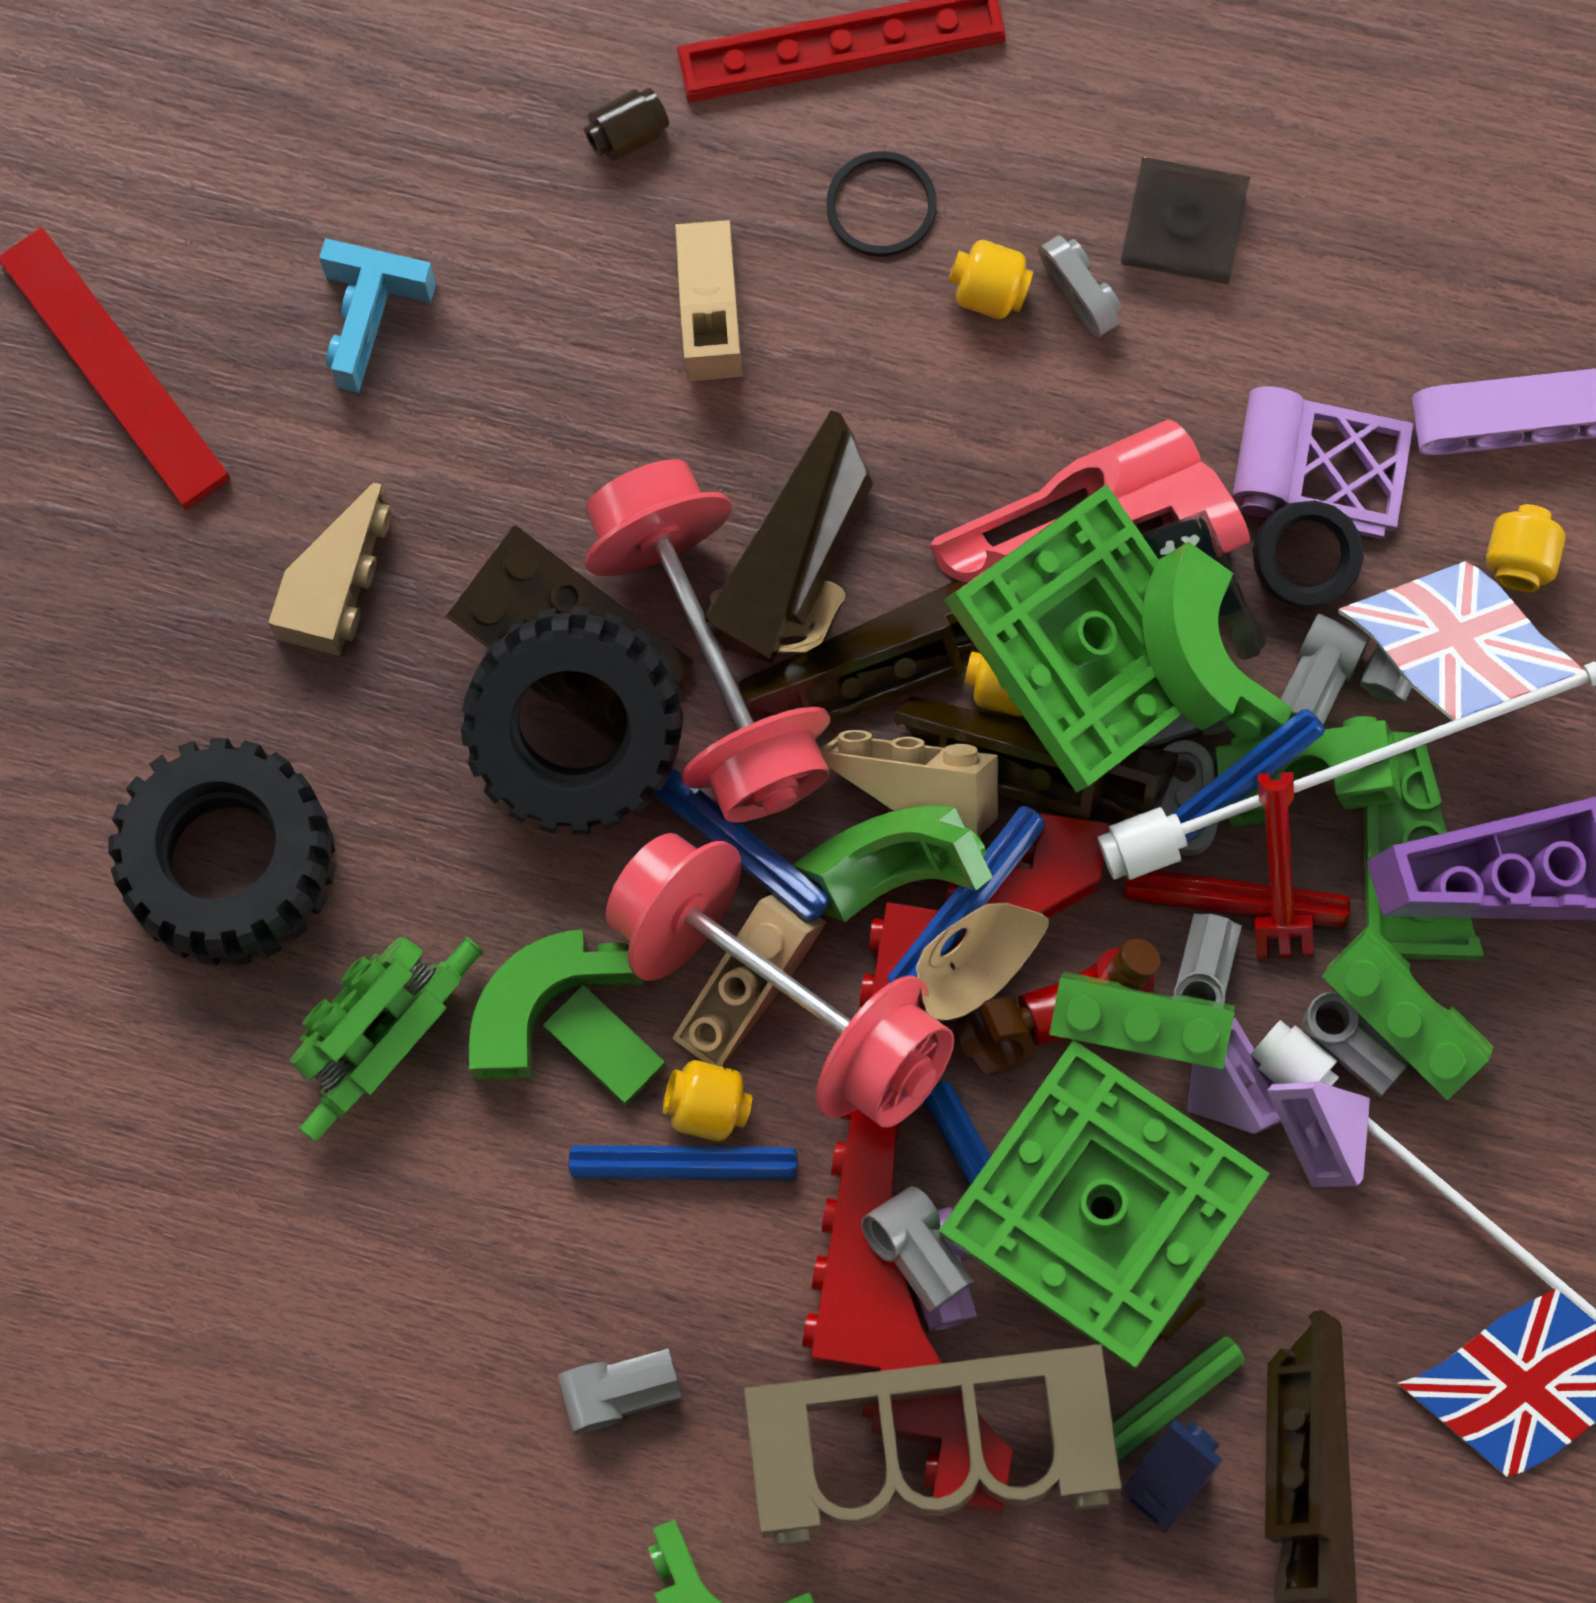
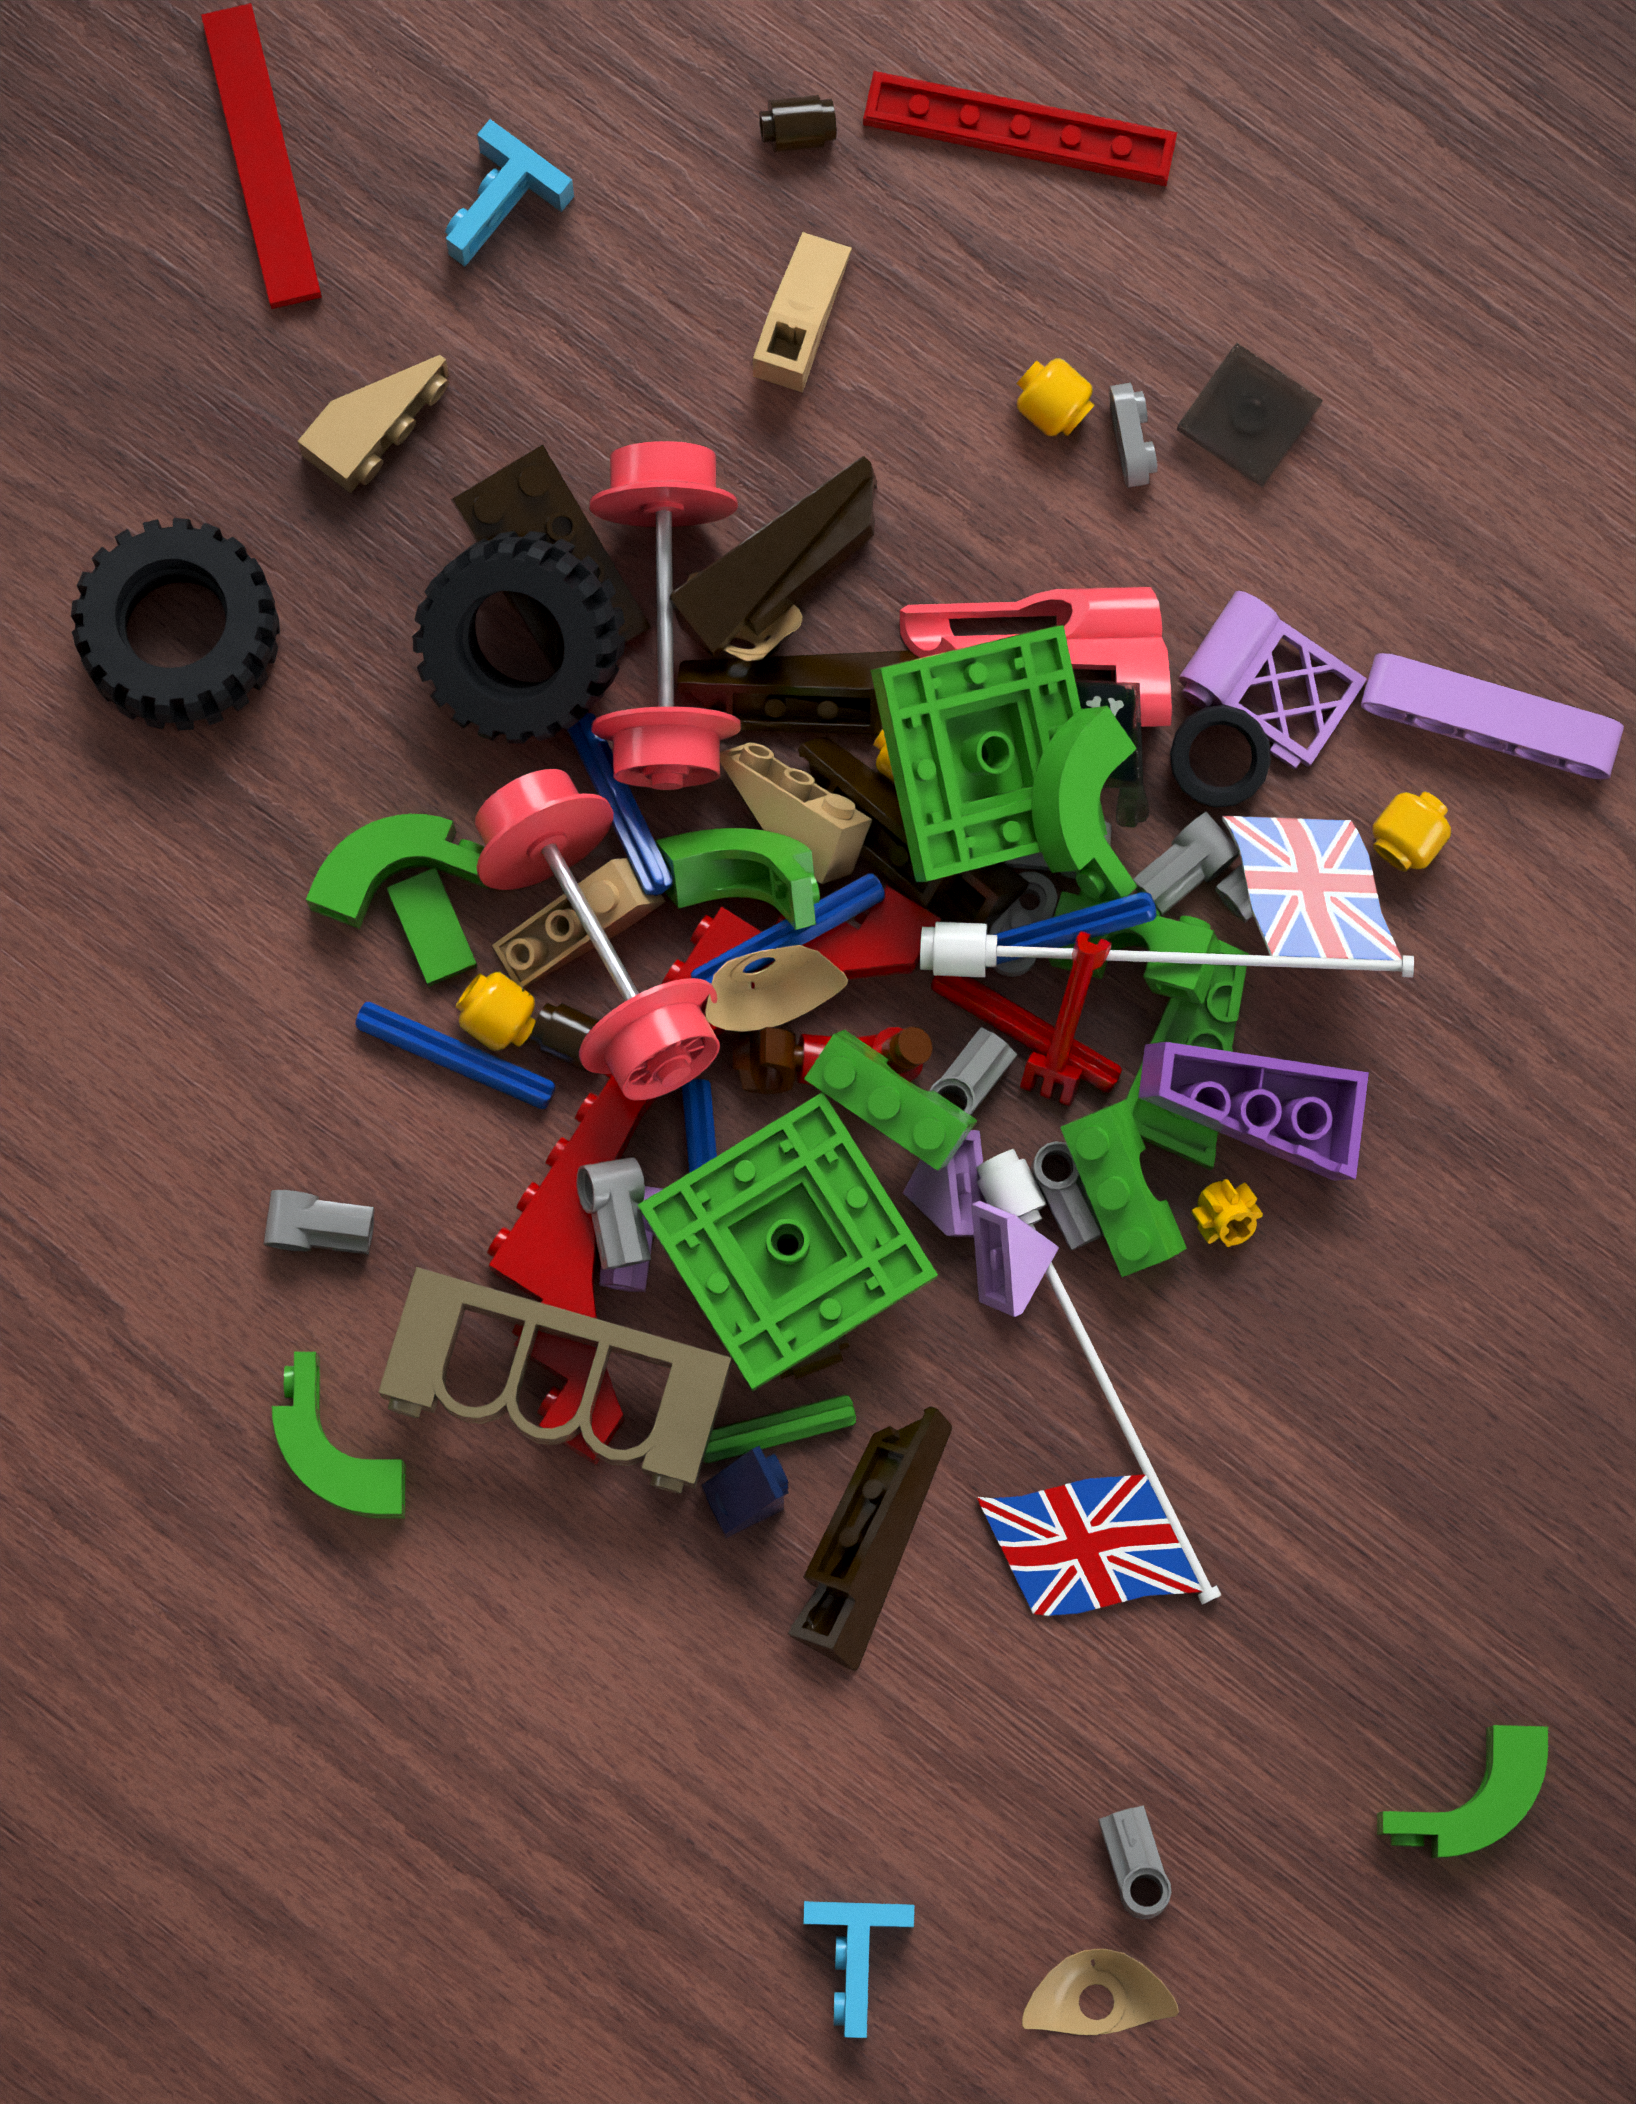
camera: 15 degrees right, 5 degrees up
(337, 1027) = (250, 796): bright green piece -> none
(786, 1094) = (561, 1032): none -> dark brown brick
(881, 156) = (1001, 242): black piece -> none
(1518, 994) = (1227, 1213): none -> yellow gear

